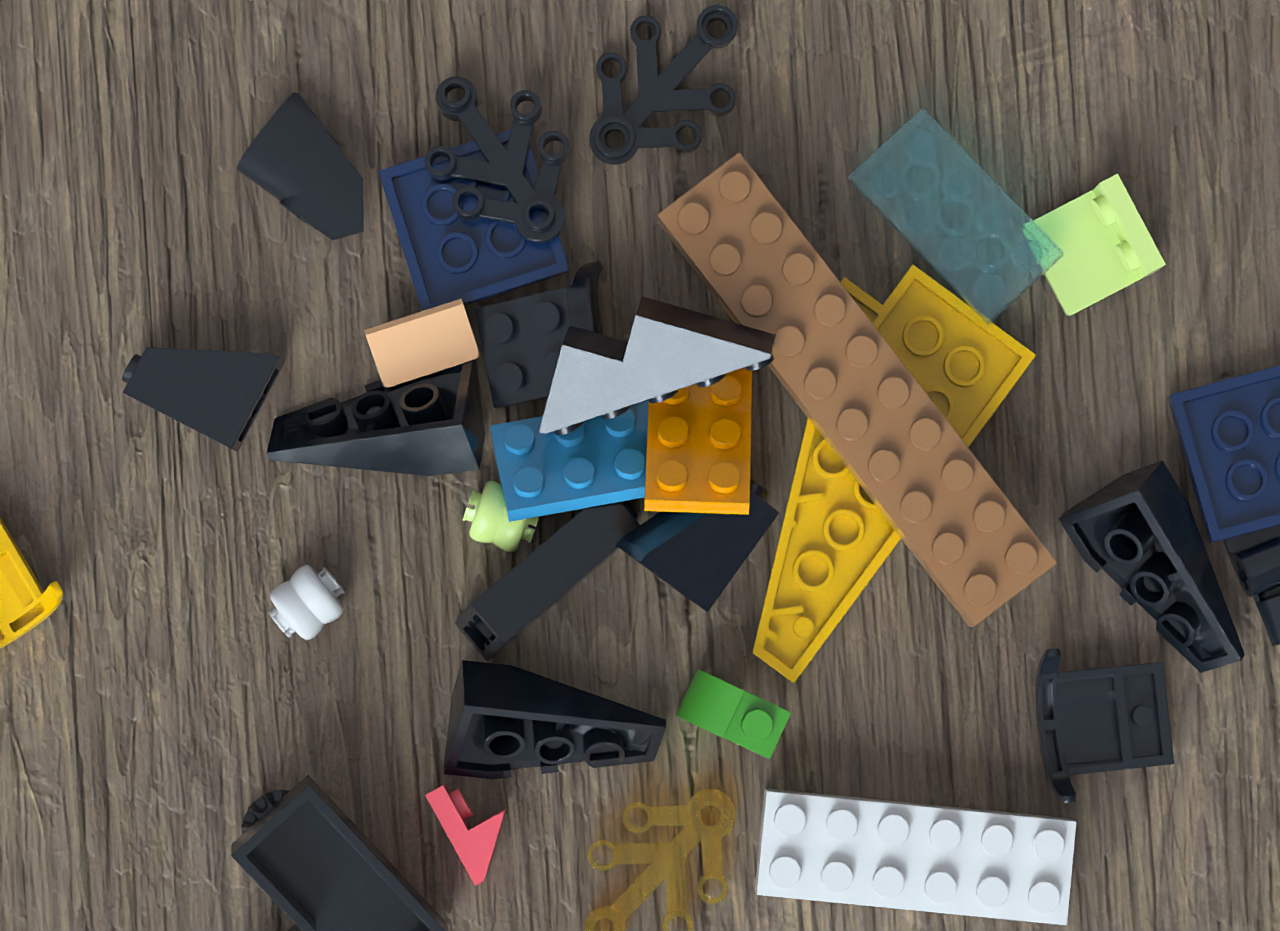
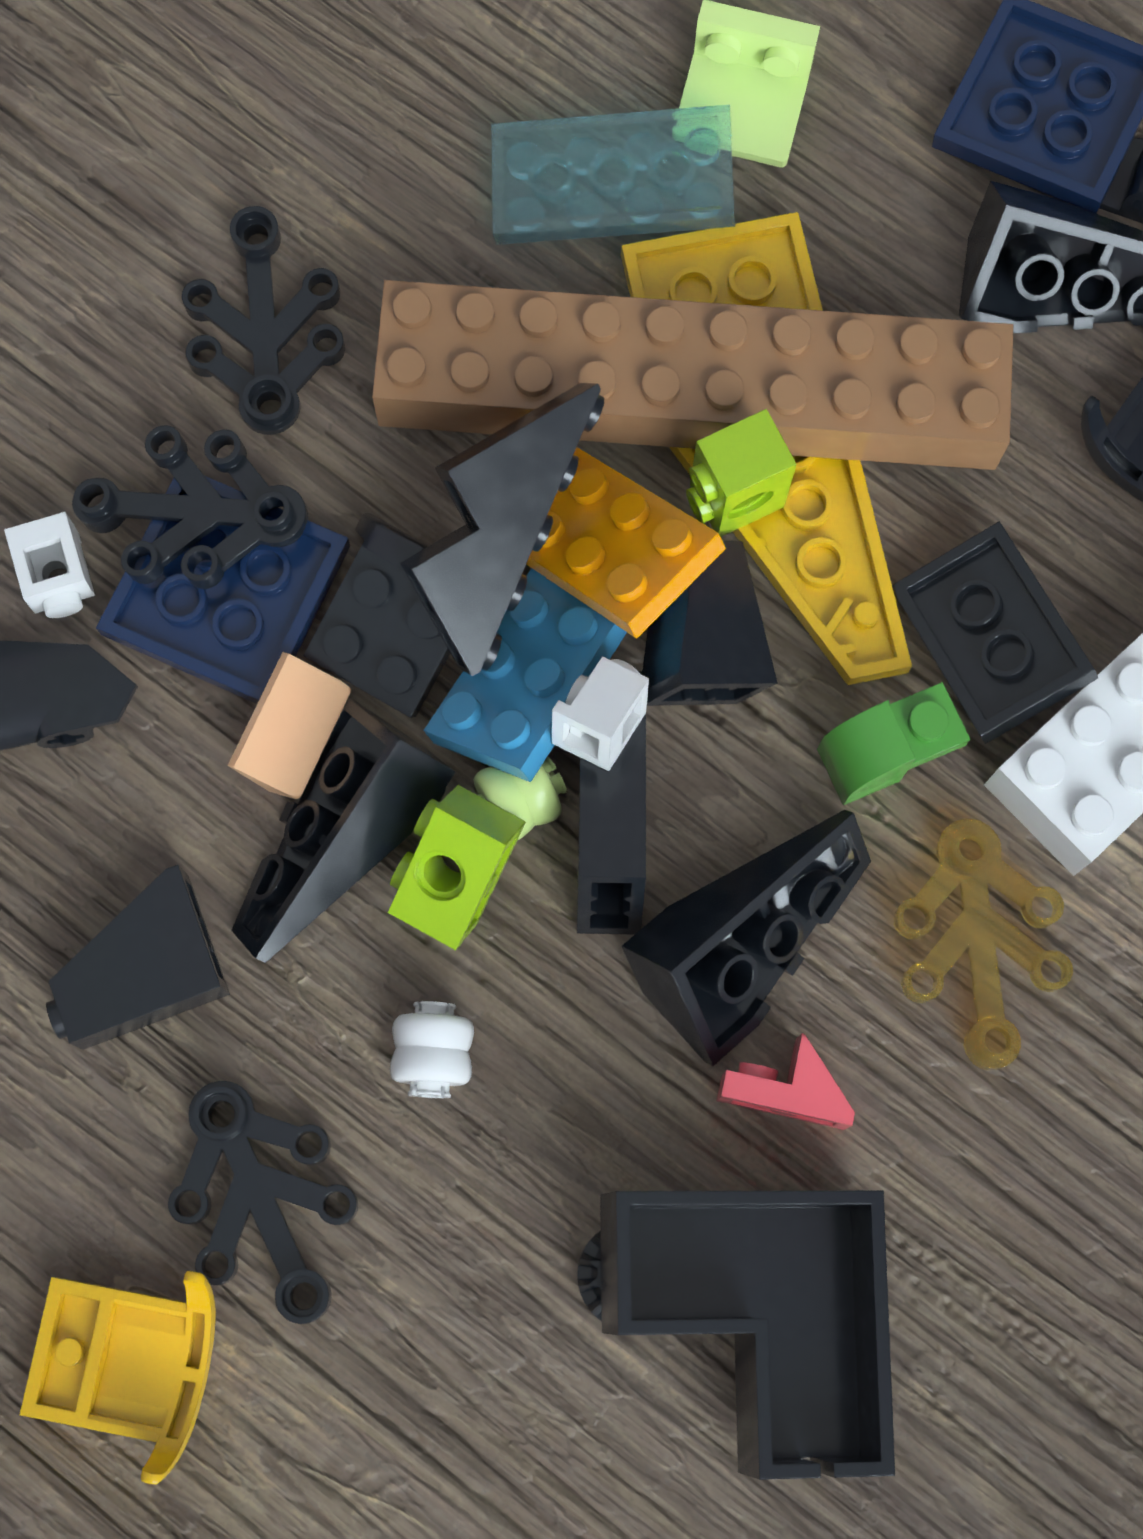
camera: 55 degrees left, 10 degrees down
(140, 573) = (256, 1190): none -> black plant
(388, 89) = (40, 549): none -> white brick
(422, 520) = (478, 841): none -> lime brick
(584, 528) = (601, 712): none -> white brick
(808, 478) = (740, 474): none -> lime brick
(856, 714) = (994, 632): none -> black plate

